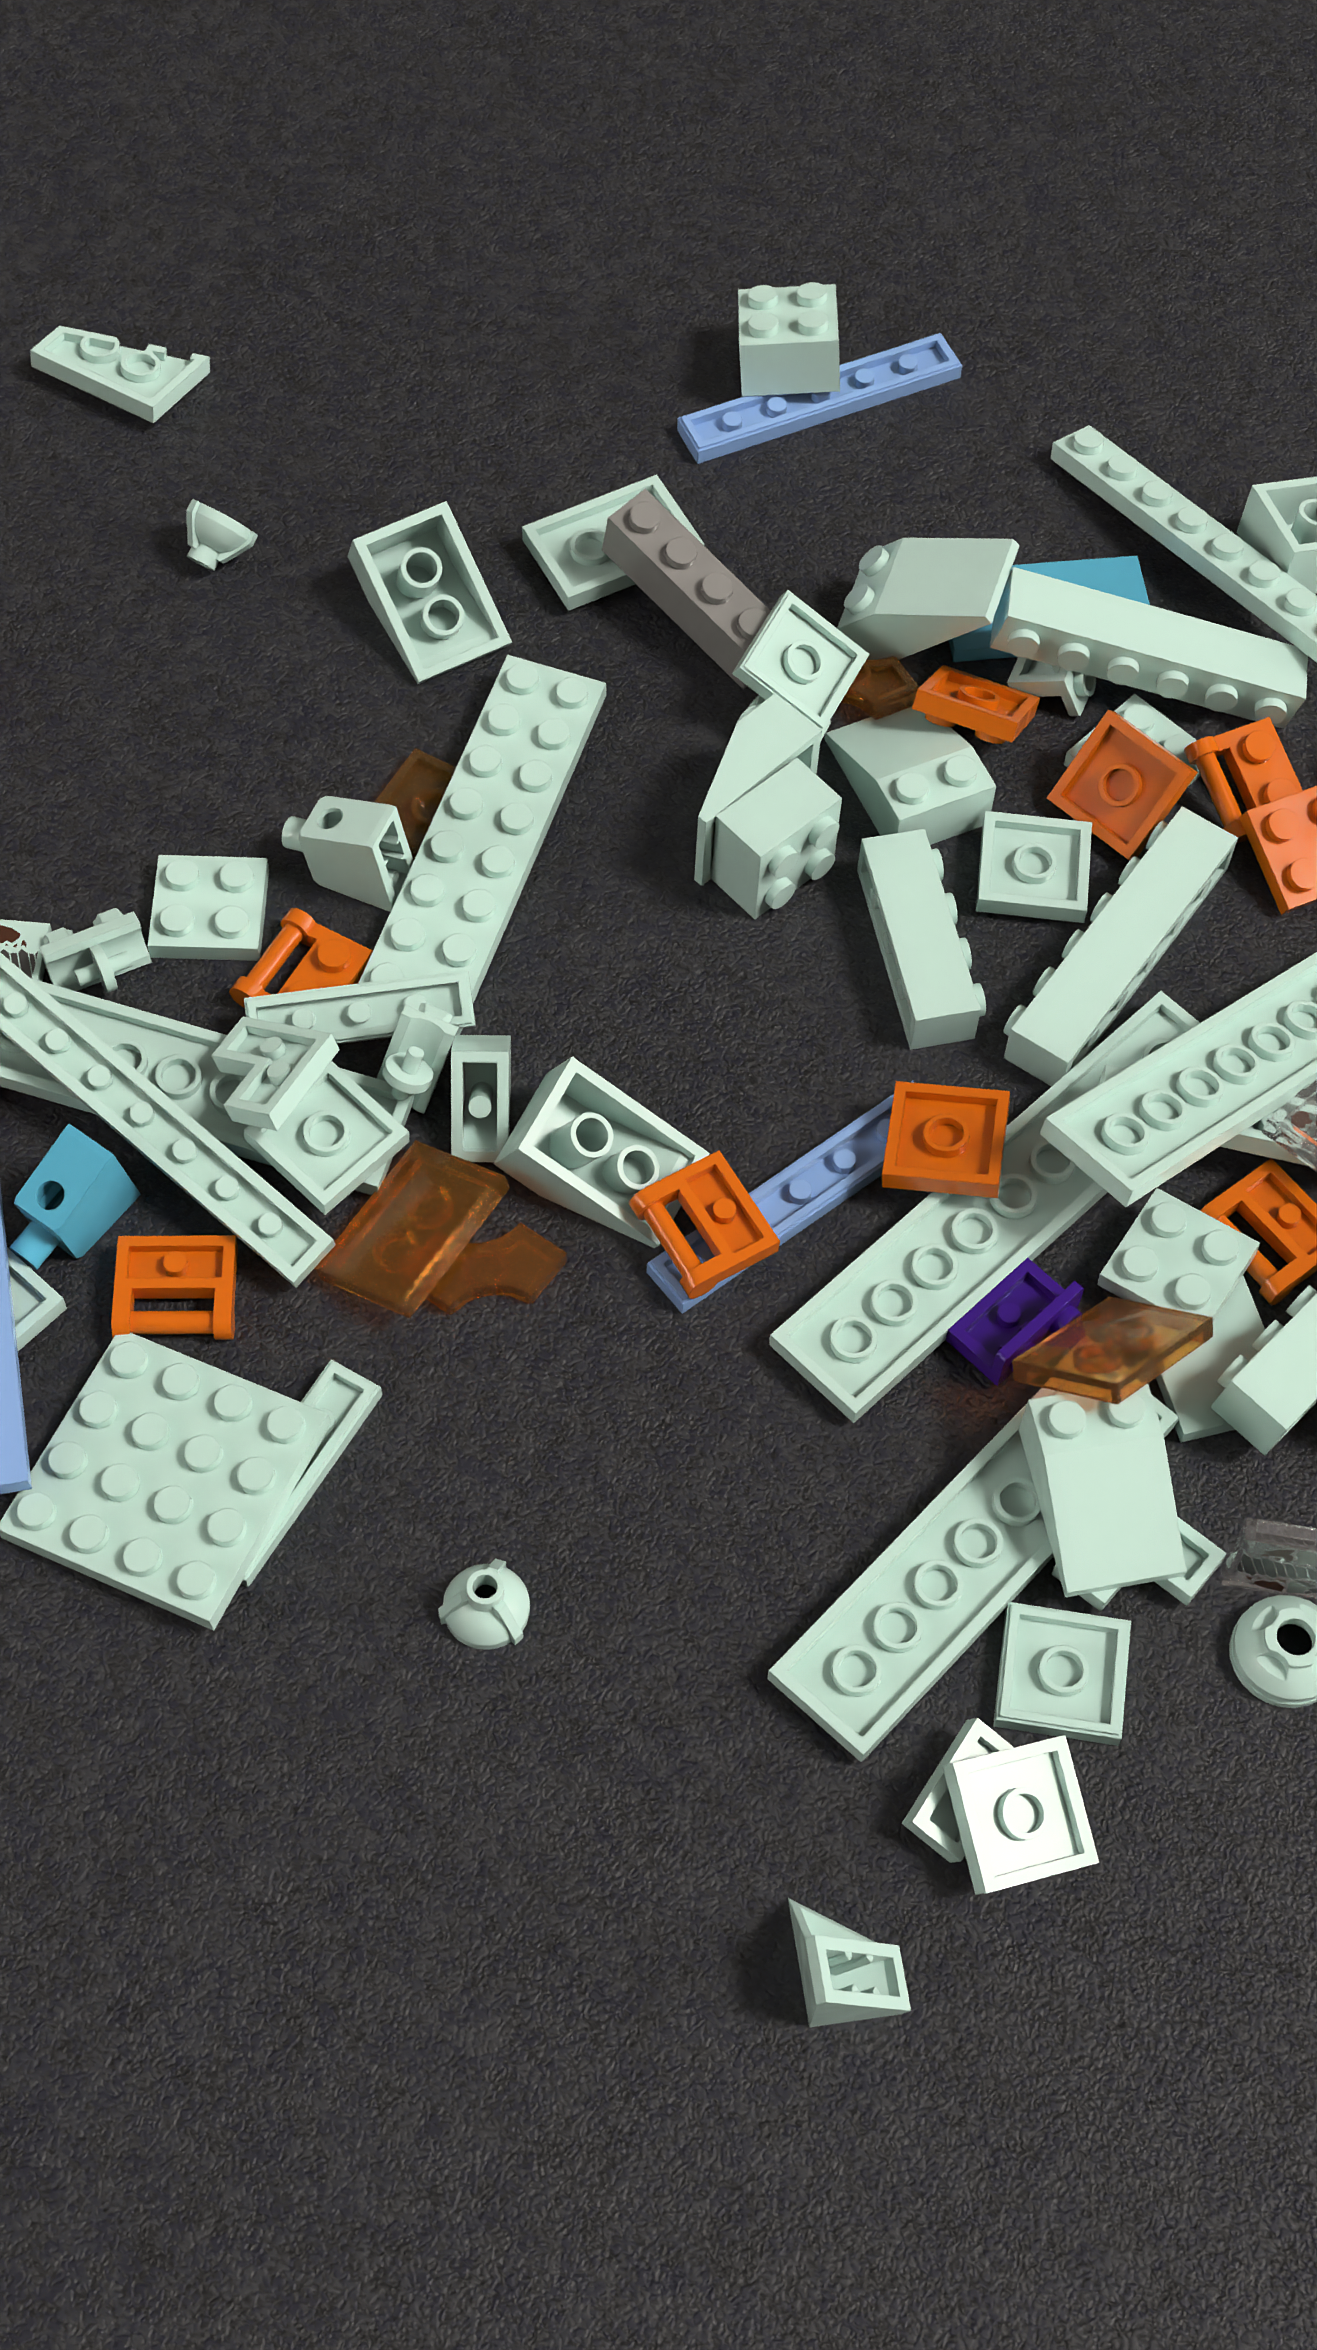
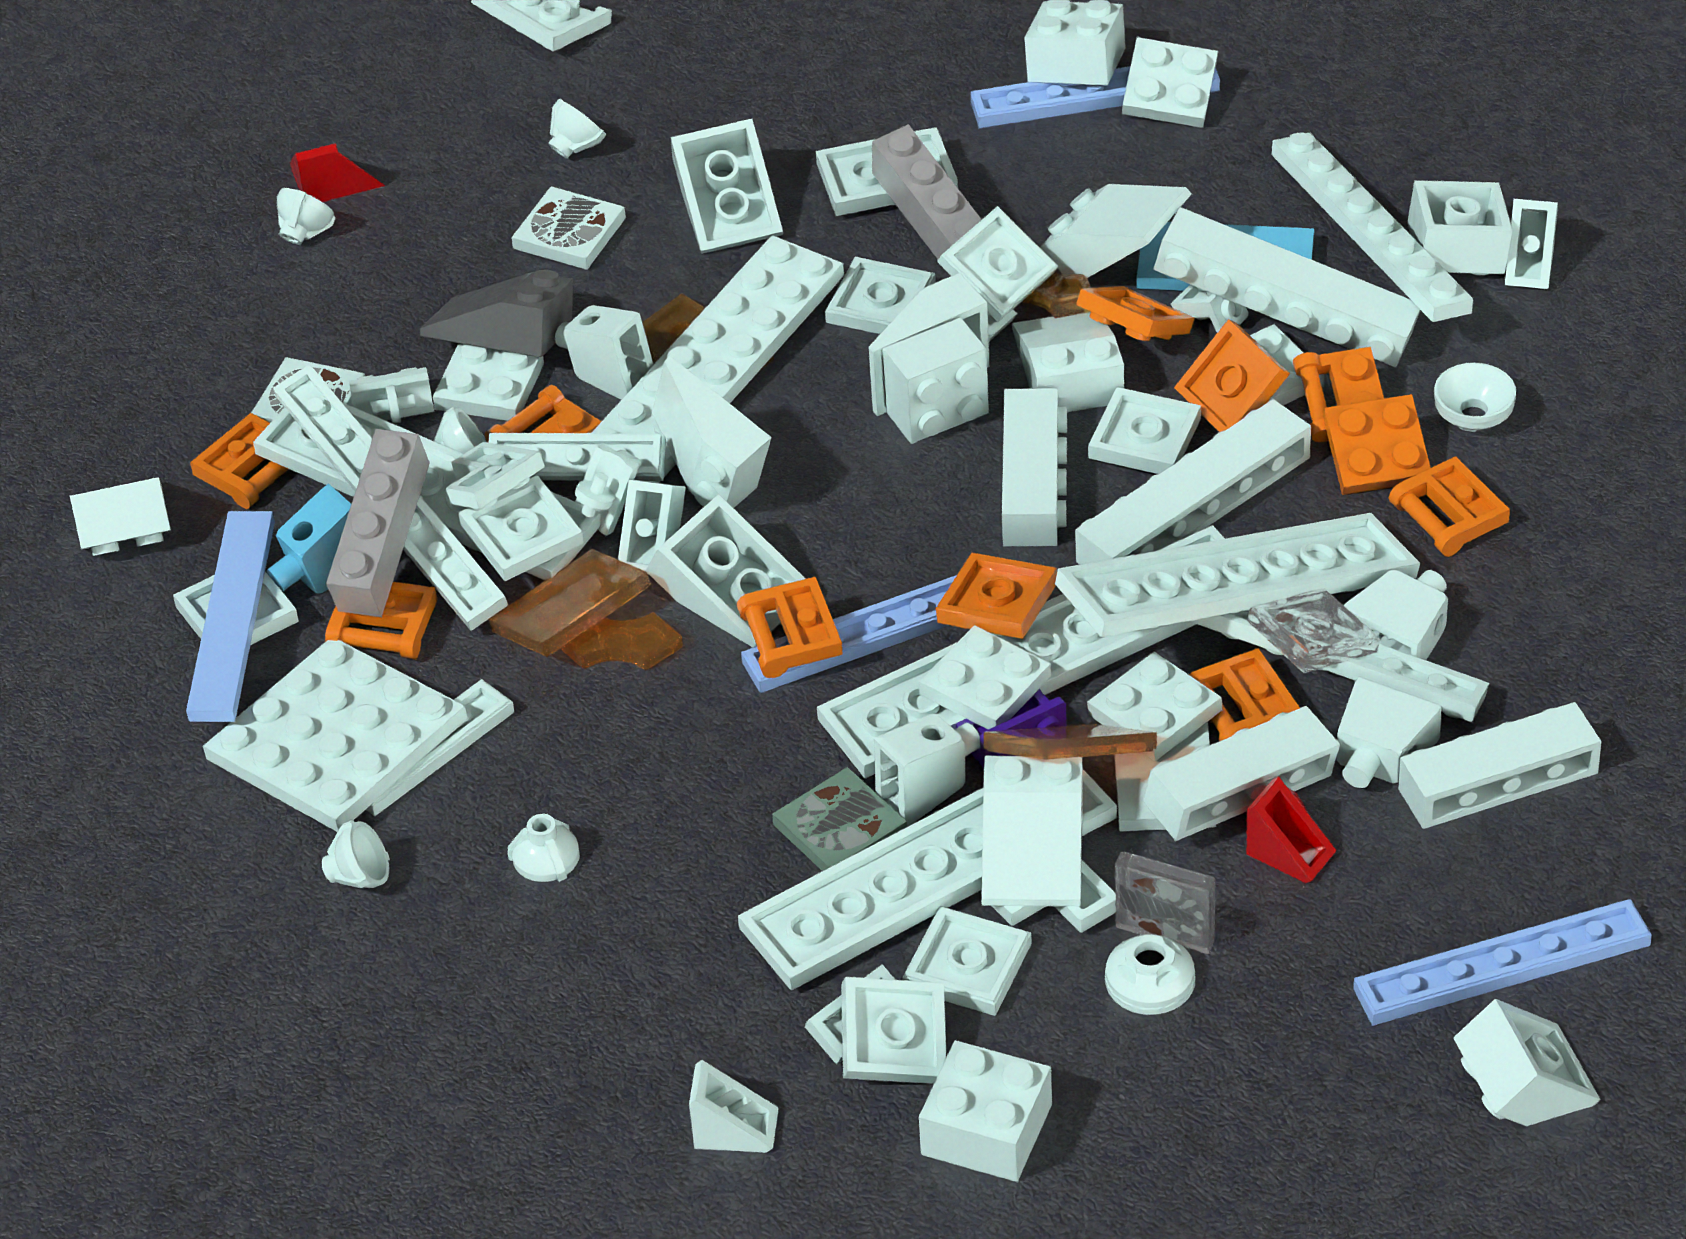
camera: 20 degrees right, 15 degrees down
(148, 1169) = (378, 523): none -> light grey brick
(205, 1003) = (458, 431): none -> light aqua piece
(207, 816) = (508, 315): none -> dark grey slope
(245, 671) = (568, 227): none -> light aqua tile
(252, 1673) = (356, 857): none -> light aqua piece
(525, 969) = (708, 437): none -> light aqua slope
(656, 719) = (874, 294): none -> light aqua tile
(843, 1496) = (837, 819): none -> sand green tile
(910, 378) = (1169, 82): none -> light aqua plate
(933, 1406) = (922, 764): none -> light aqua torso
(967, 1262) = (985, 678): none -> light aqua plate
(1169, 1911) = (985, 1110): none -> light aqua brick

